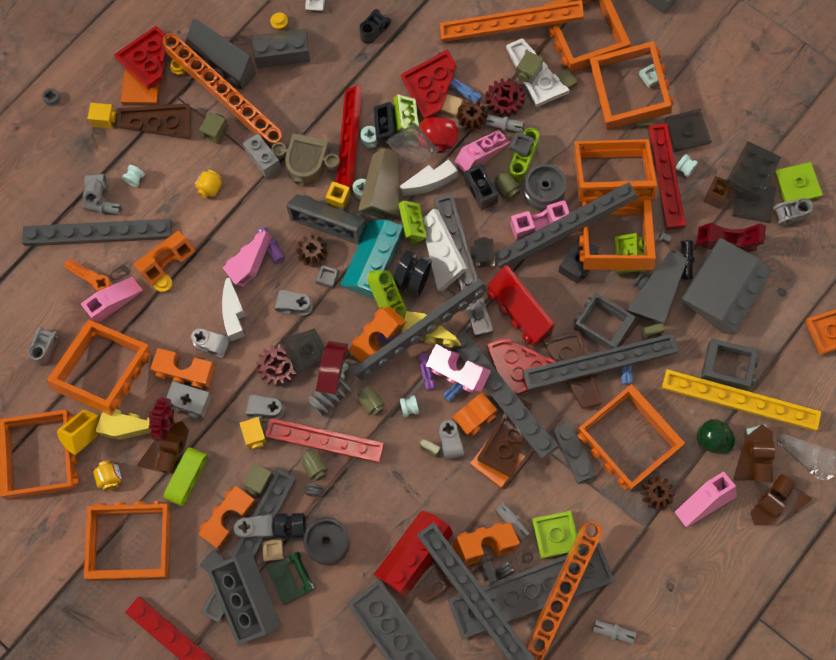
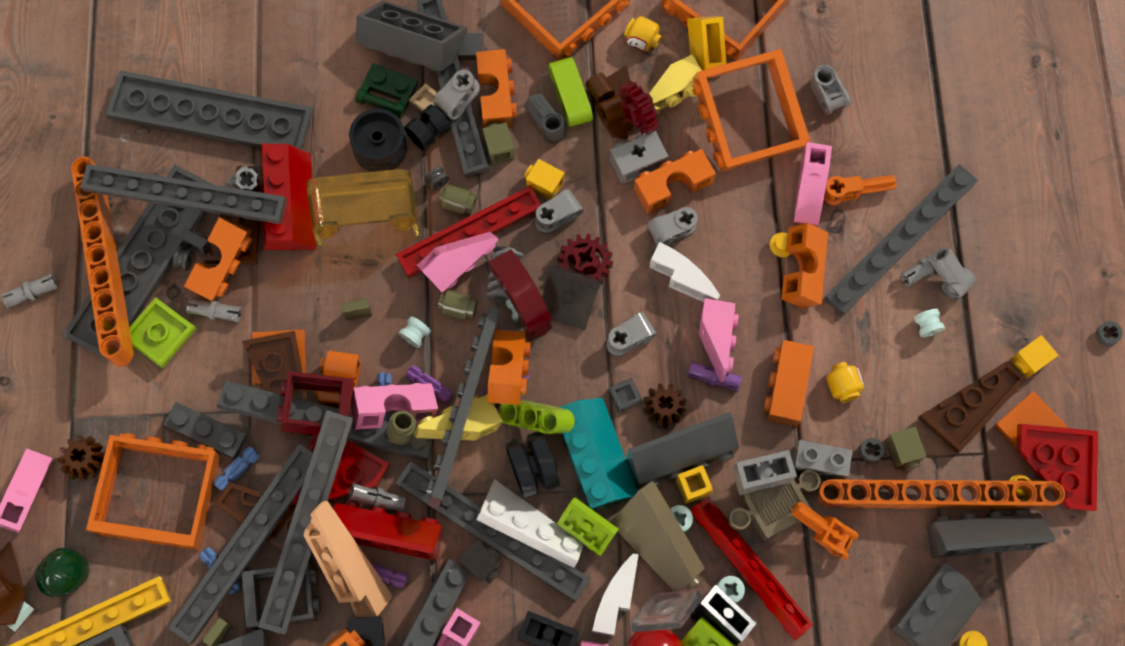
camera: 130 degrees right, 0 degrees up
(215, 475) = (544, 117): none -> dark grey piece
(234, 147) = (871, 442): none -> dark grey bush
(237, 207) = (788, 383): none -> orange brick
(294, 120) = (829, 531): none -> orange connector
(299, 164) = (764, 472): none -> light grey brick
(347, 425) = (451, 260): none -> bright pink slope
(375, 497) = (362, 200): none -> clear yellow windscreen
(430, 578) = (243, 179): none -> light grey piece
(450, 443) = (340, 331): light grey piece -> none
(465, 348) = (401, 427): none -> olive brick
(488, 384) = (317, 383): none -> dark red window
(516, 336) = (377, 498): none -> light grey pin
(540, 292) = (389, 576): none -> medium lavender axle
(557, 299) = (345, 564): none -> light nougat wedge
(558, 335) = (296, 550): none -> dark grey plate
(573, 414) = (236, 468): none -> medium blue axle

